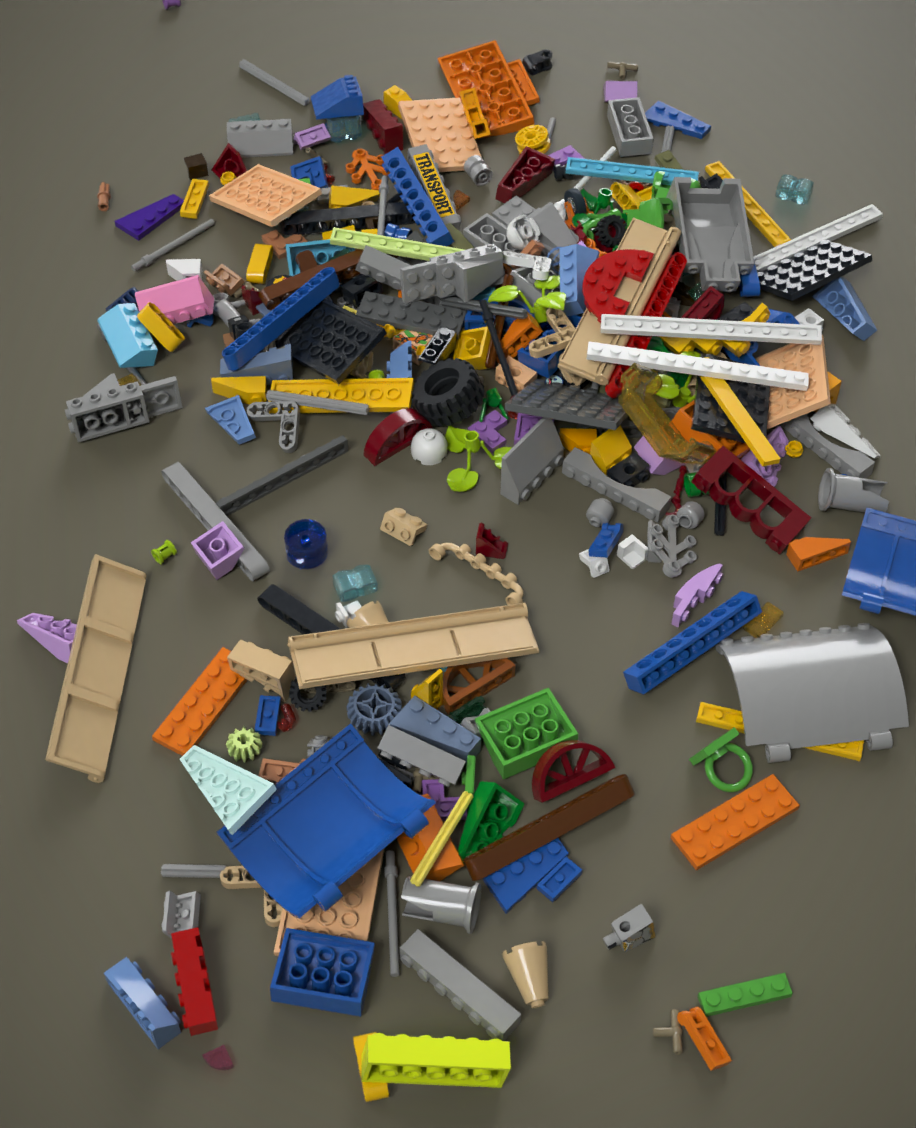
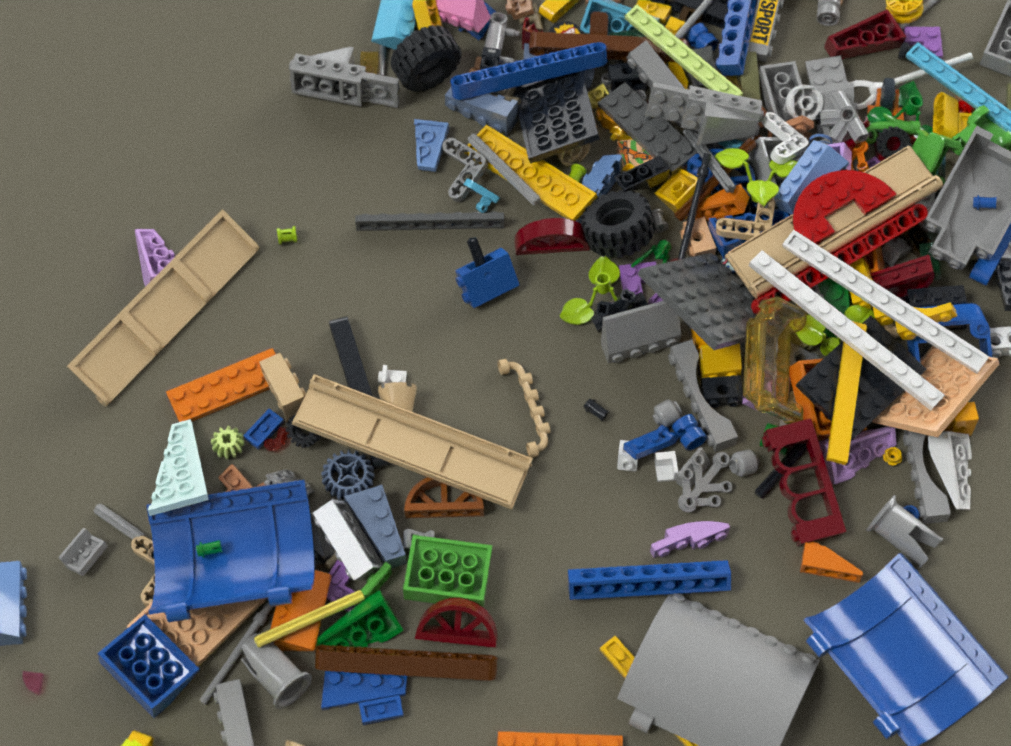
camera: 35 degrees right, 10 degrees up
(185, 350) = (425, 58): none -> black tyre
(194, 982) = (54, 611): red wedge -> none
(211, 515) = (346, 231): light grey beam -> none
(218, 550) = (324, 260): lavender slope -> none
(249, 389) = (460, 120): yellow slope -> none
(300, 838) = (208, 548): none -> green pin
(306, 544) = (400, 296): clear blue wheel -> none
(307, 428) = (487, 196): none -> medium azure piece
(355, 582) = (415, 354): clear light blue brick -> none
(370, 487) = (486, 275): none -> blue piece
(402, 525) = (494, 325): tan bracket -> none
(429, 446) = (572, 264): white cylinder -> none
(430, 690) = (395, 491): yellow slope -> none
(460, 199) = (791, 29): clear orange tile -> none
(470, 709) = (417, 523): clear green hinge -> none
(489, 544) = (553, 383): dark red slope -> none
(493, 458) = (626, 301): none -> black piece
(539, 542) = (594, 408): none -> black pin
(566, 234) = (841, 125): none -> light grey piece
(634, 520) = (689, 432): none -> blue wheel
(679, 487) = (746, 440): dark red piece -> none
(715, 234) = (984, 202): none -> blue pin
(716, 750) = (589, 685): bright green tile -> none
(765, 621) = (736, 597): clear yellow plate -> none

